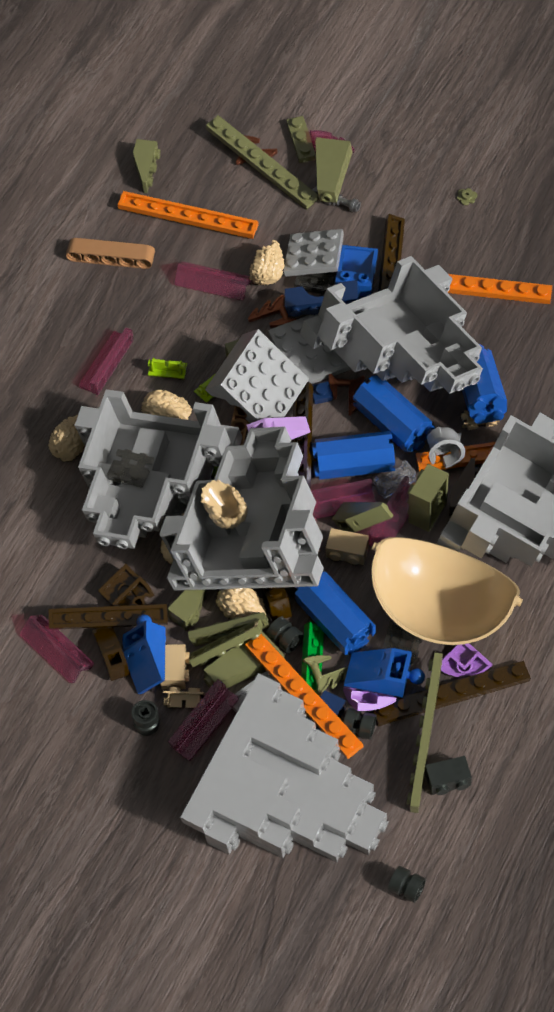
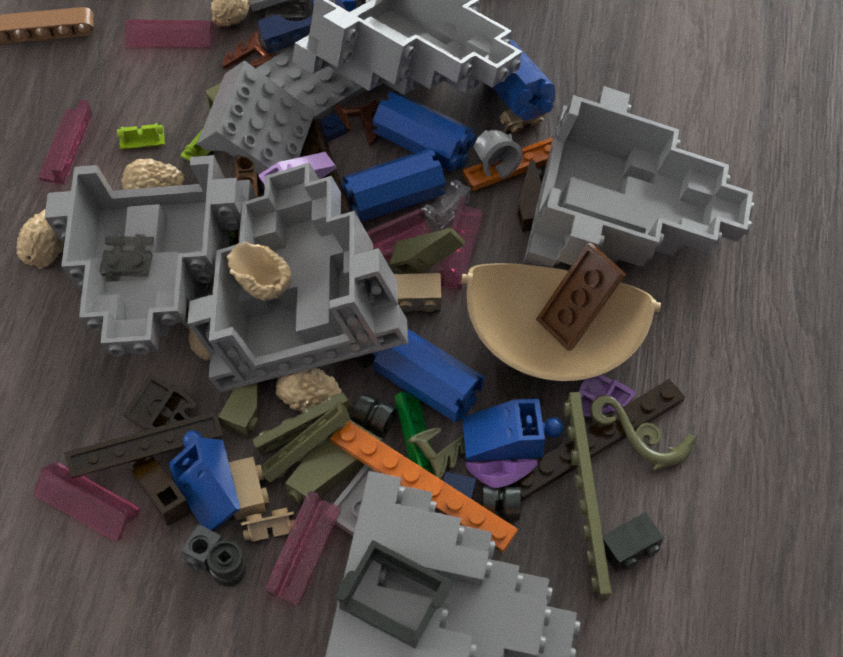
camera: 20 degrees left, 0 degrees up
(133, 695) = (200, 538): none -> dark grey brick
(223, 746) = (404, 566): none -> pearl dark grey piece
(277, 602) = (352, 377): dark brown slope -> none
(427, 497) = (496, 213): olive brick -> none
(467, 580) = (580, 296): none -> reddish brown tile
(478, 699) = (635, 438): none -> olive plant

